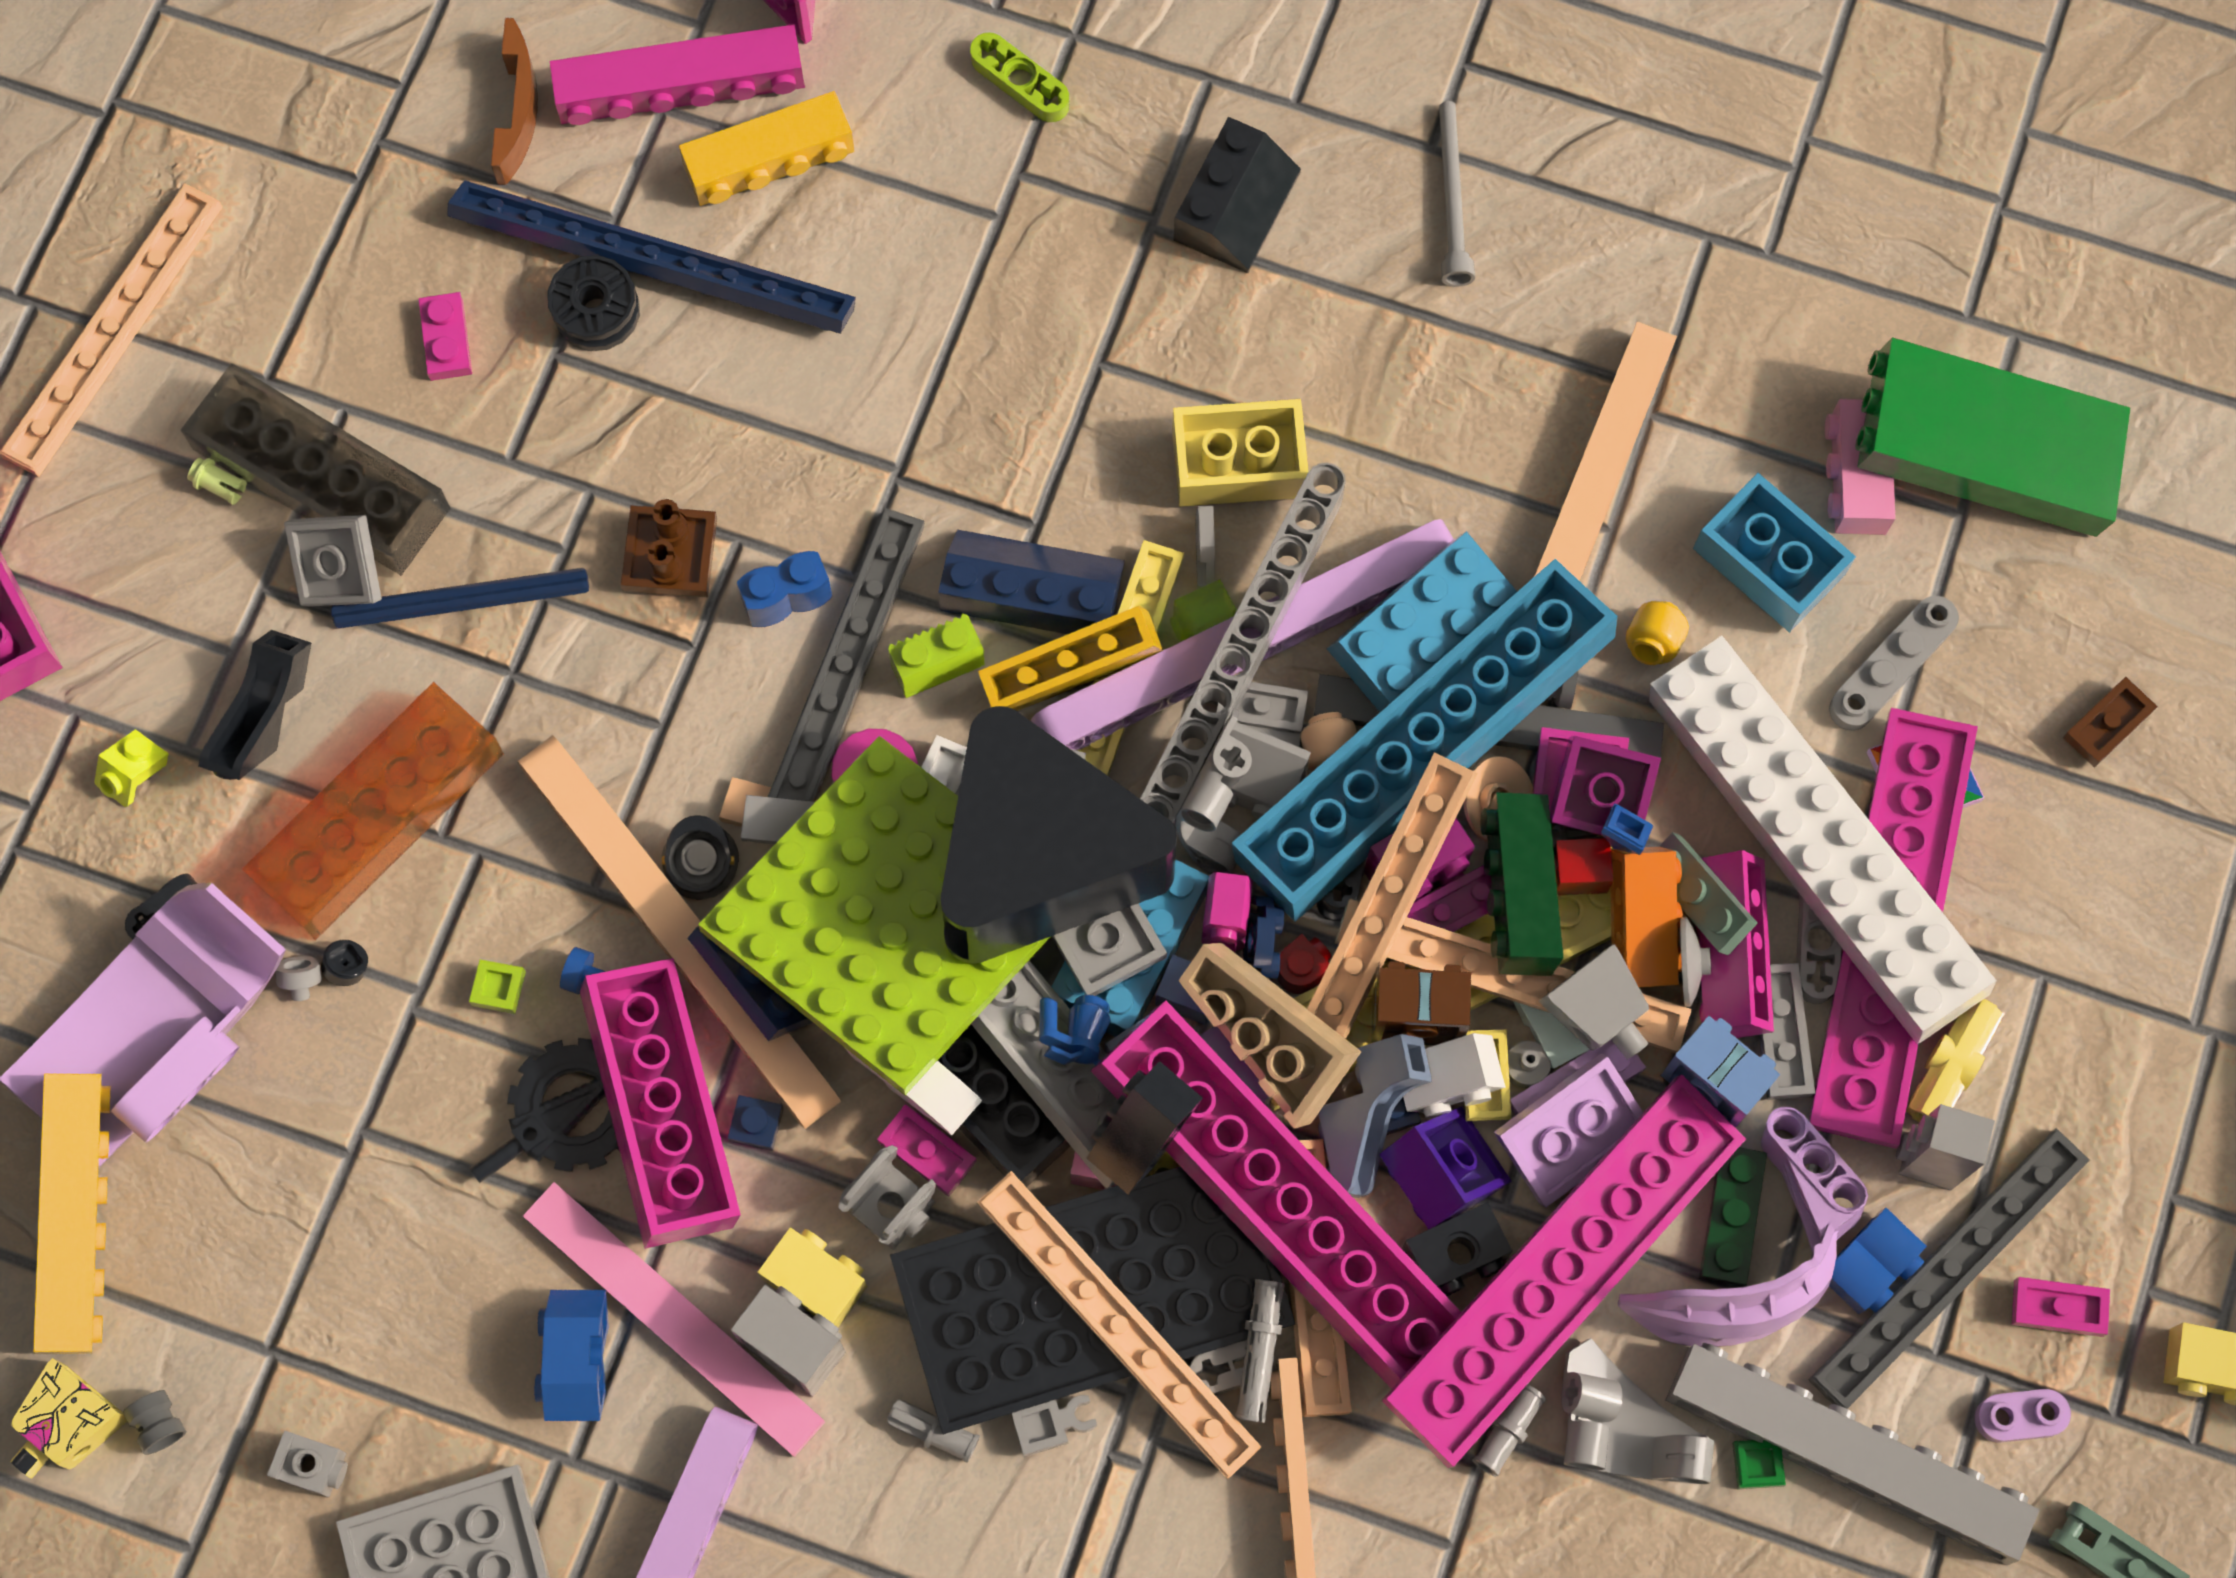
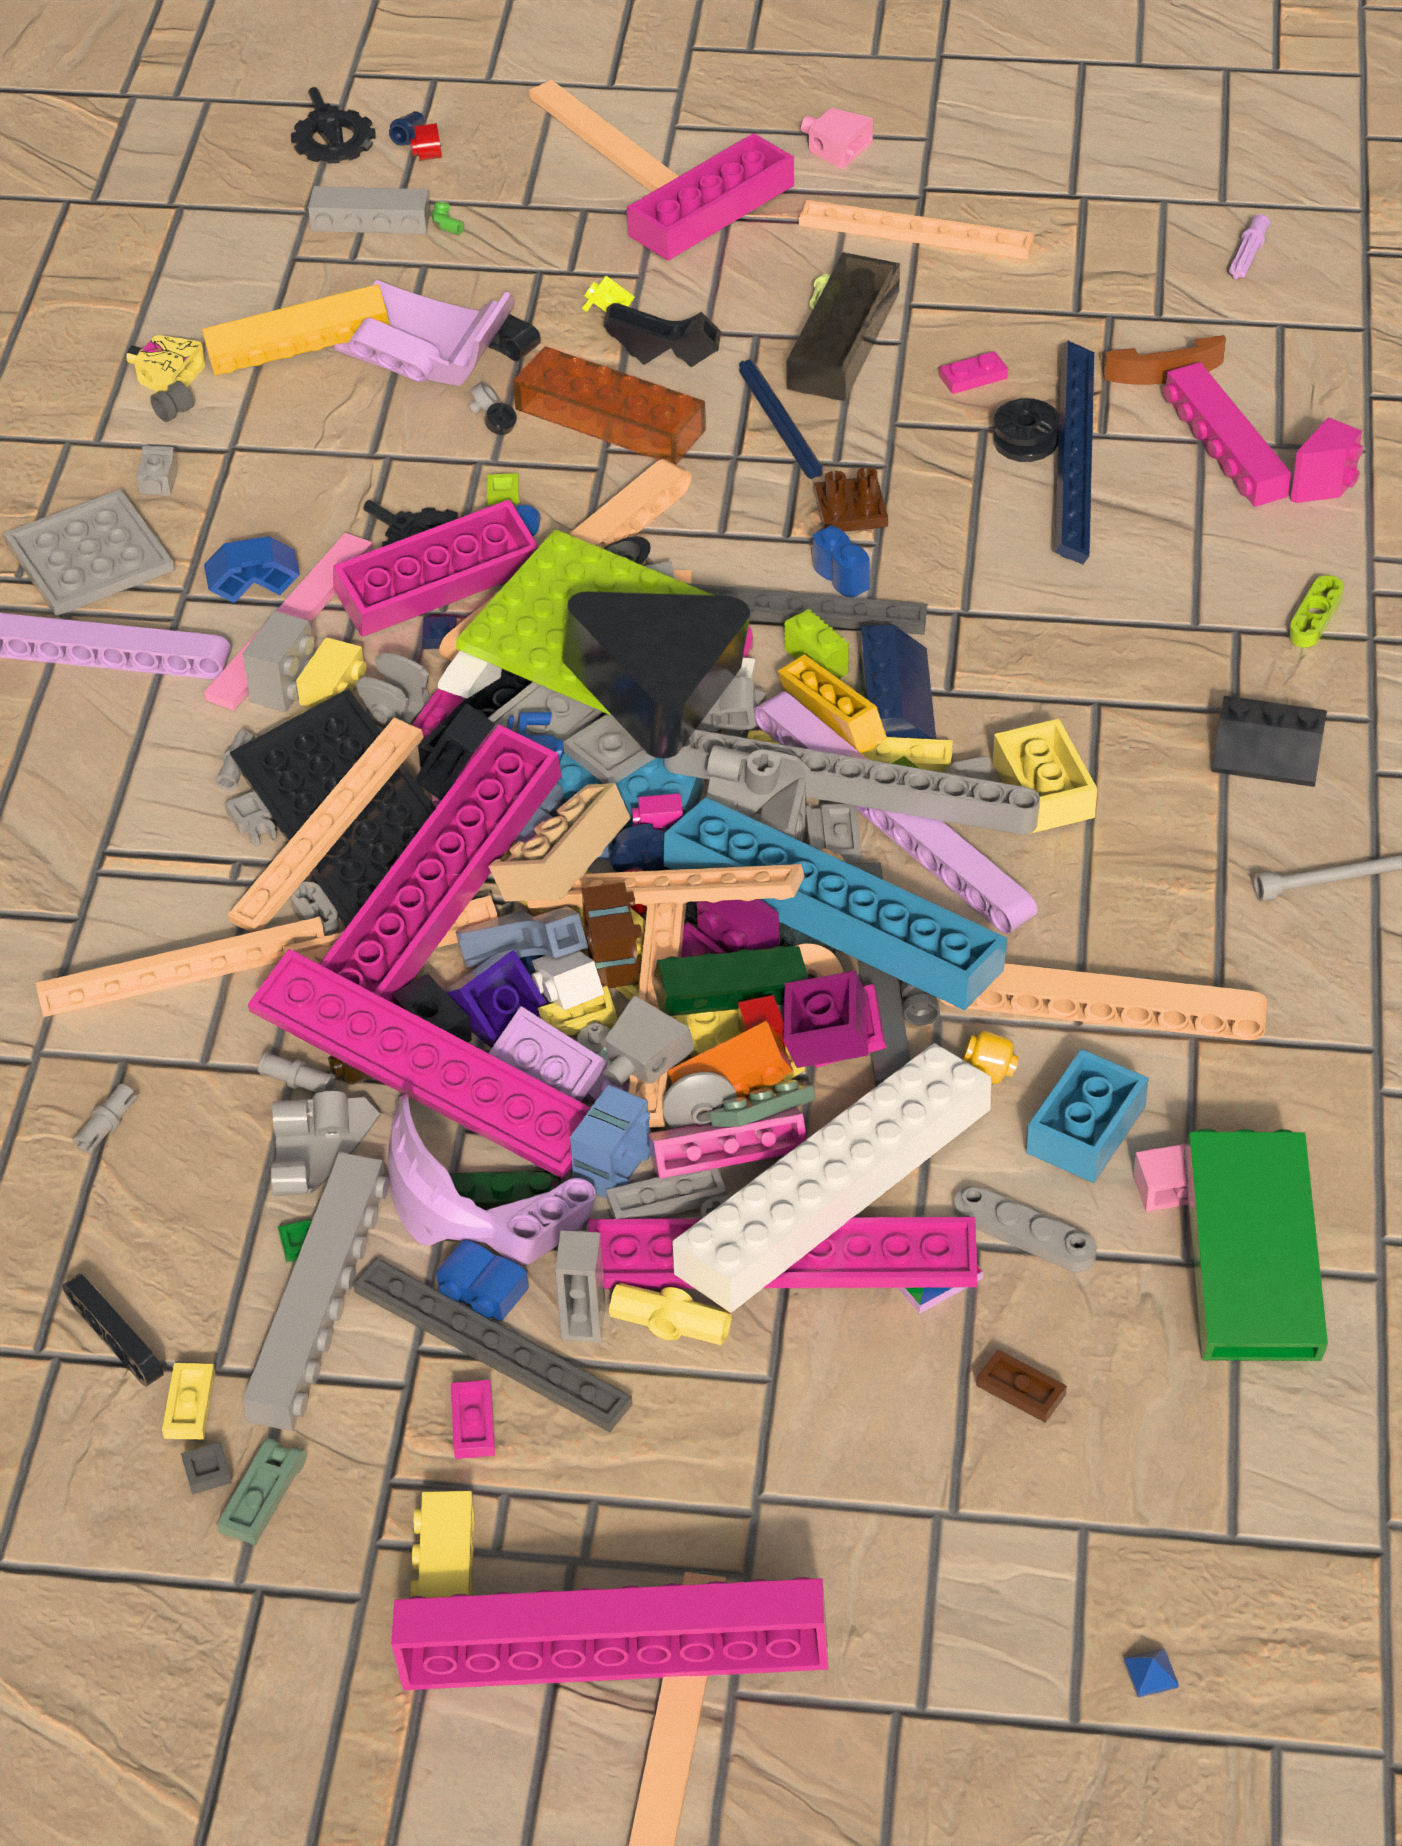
camera: 80 degrees right, 25 degrees down
(333, 560) = (777, 342): light grey tile -> none
(767, 149) = (1188, 488): yellow brick -> none
(1260, 1350) = (324, 907): light grey pin -> none
(1421, 620) = (942, 880): dark azure brick -> none
(1626, 830) = (788, 1018): blue slope -> none
(2024, 1415) = (372, 1408): lavender plate -> none

